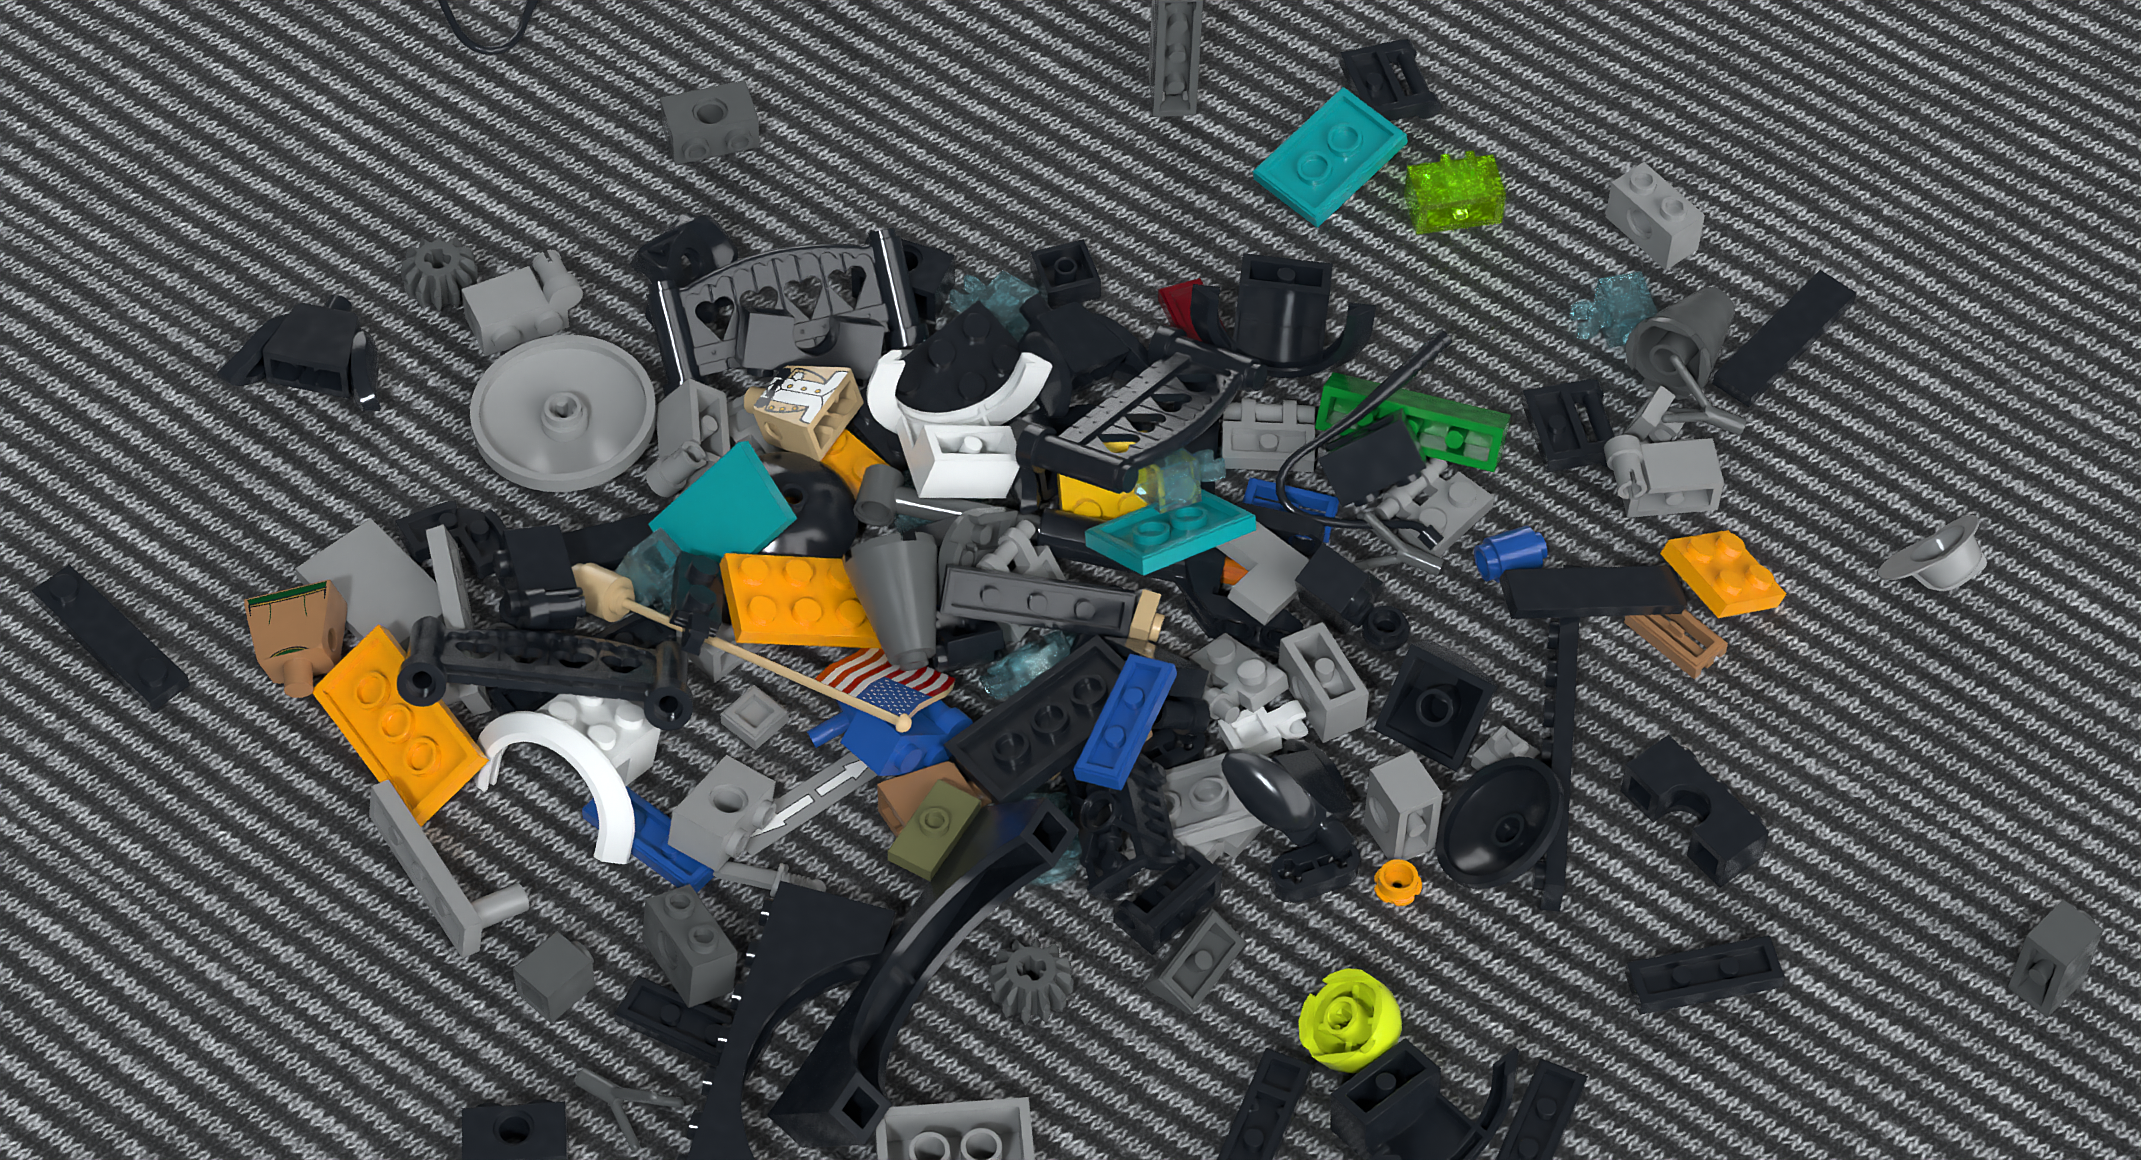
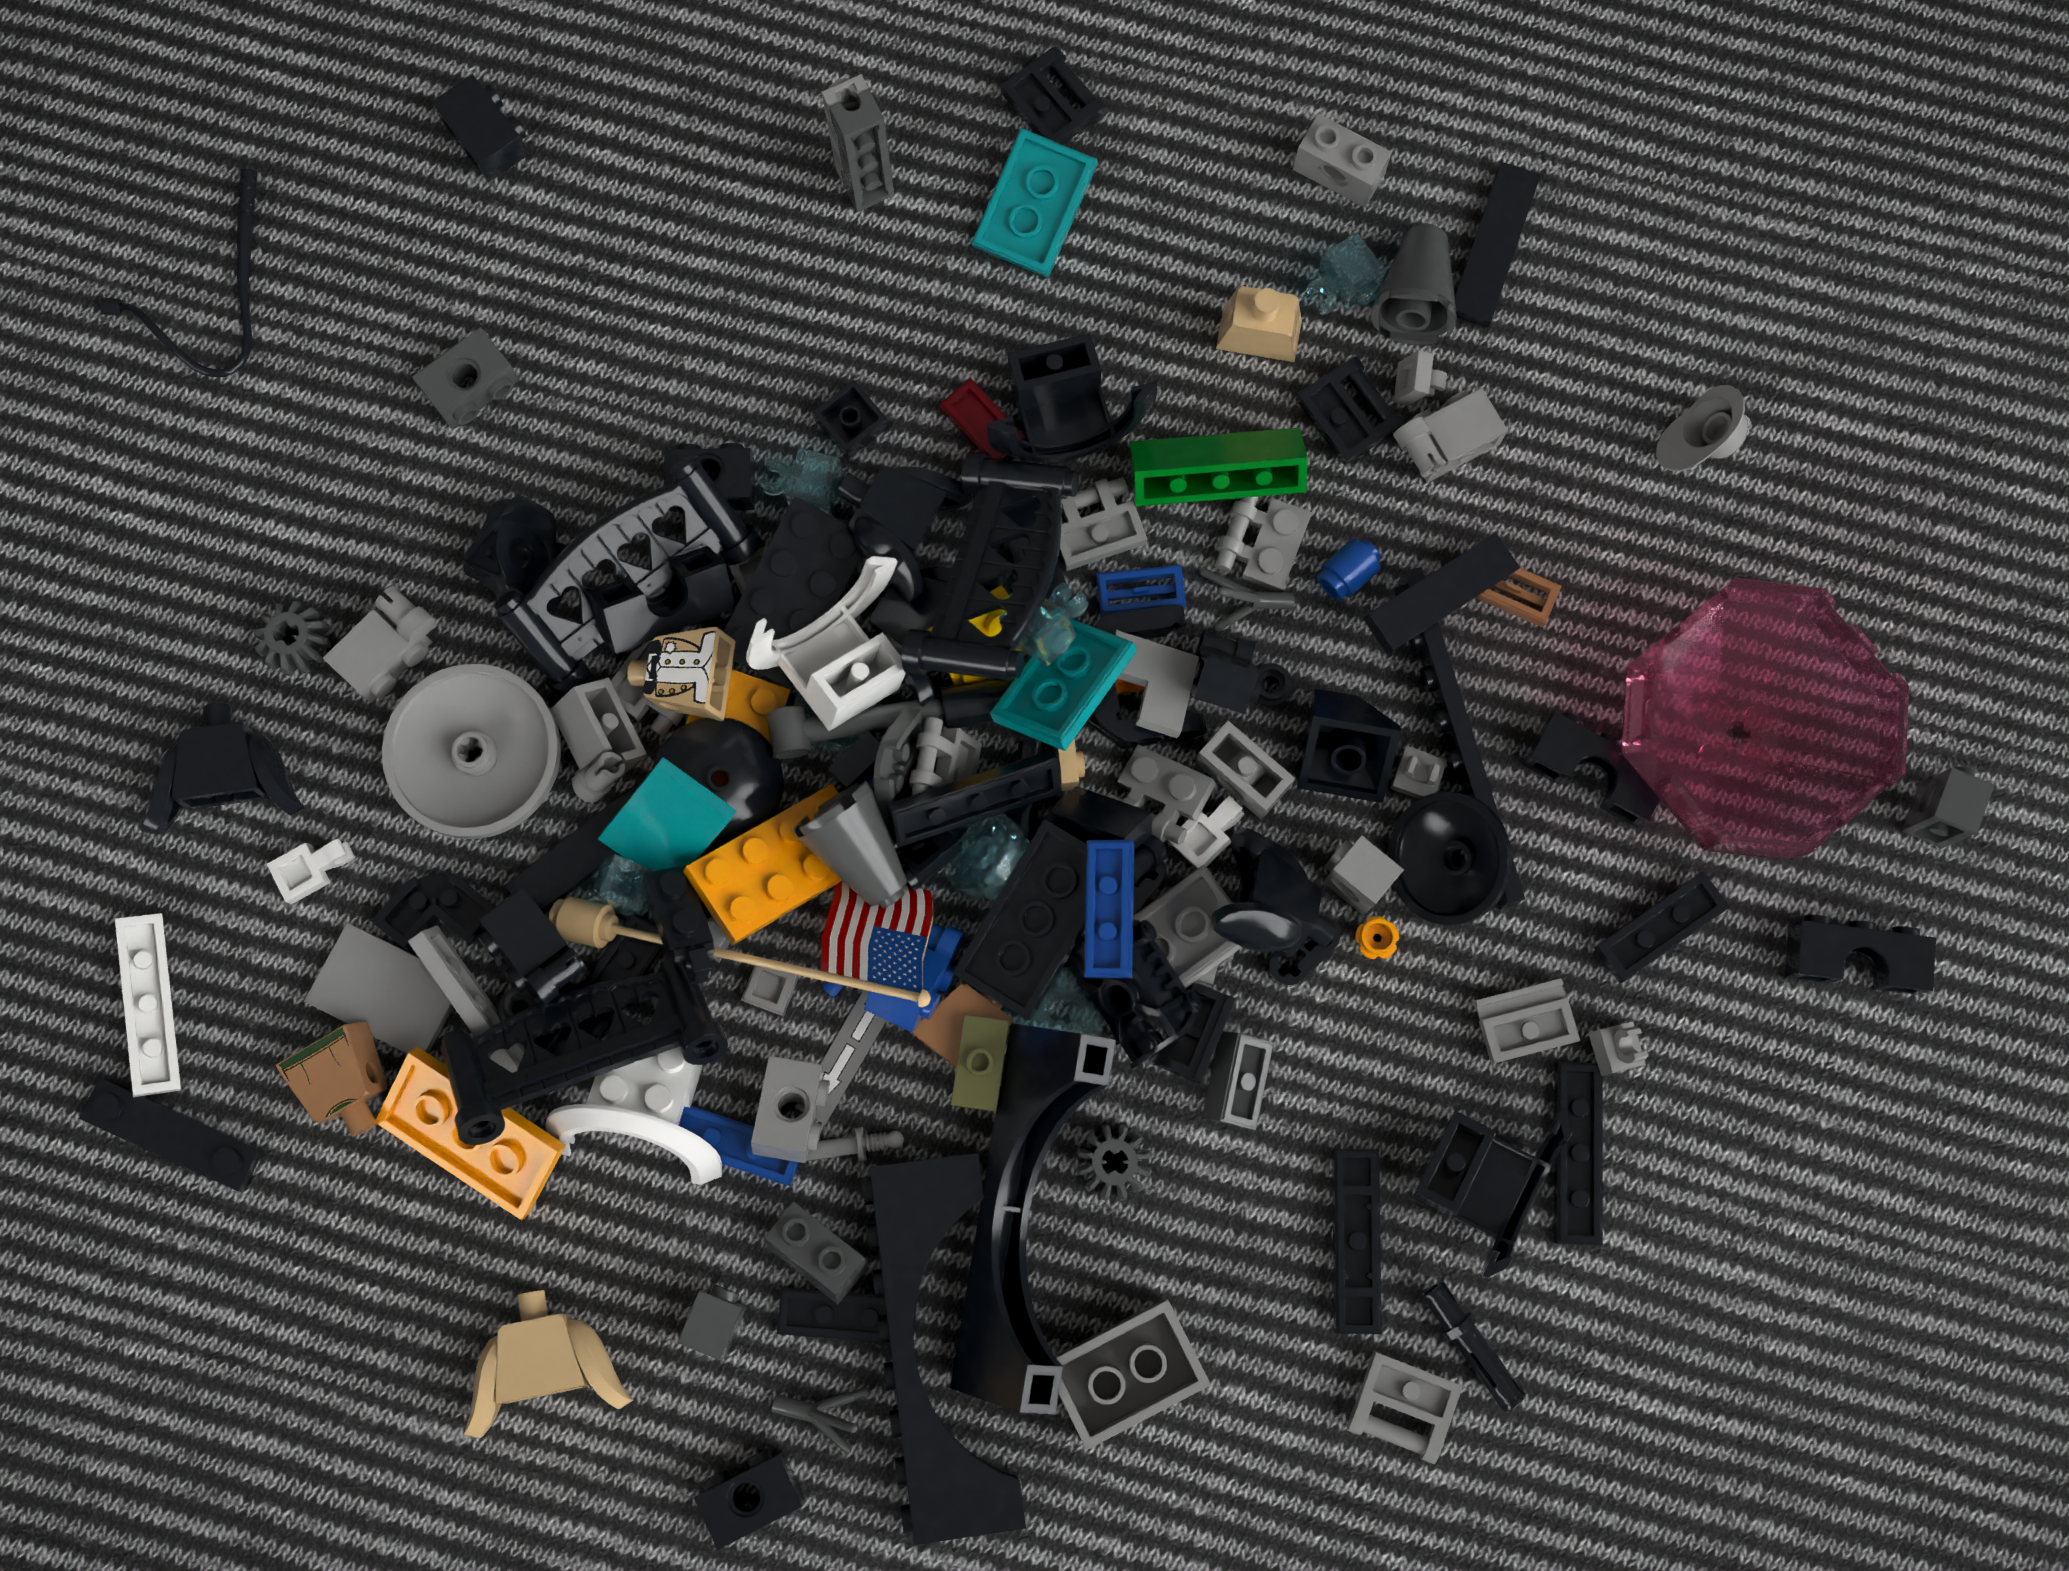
camera: 20 degrees left, 25 degrees up
(146, 520) = (147, 1005): none -> white plate
(352, 461) = (304, 869): none -> white plate
(364, 946) = (538, 1360): none -> tan torso
(433, 880) = (608, 1299): light grey piece -> none
(1350, 1021) = (1398, 1106): neon yellow cylinder -> none
(1373, 459) = (1201, 525): black brick -> none
(1402, 375) = (1196, 451): black piece -> none
(1454, 193) = (1158, 201): clear neon green brick -> none
(1513, 319) = (1261, 324): none -> tan torso
(1522, 1009) = (1526, 1021): none -> light grey plate
(1610, 1065) = (1617, 1048): none -> light grey tile
(1707, 412) = (1459, 353): dark grey plant -> none
(1723, 573) = (1536, 521): light orange plate -> none
(1877, 1048) = (1899, 958): none -> black arch
(1890, 751) = (1803, 687): none -> clear pink windscreen

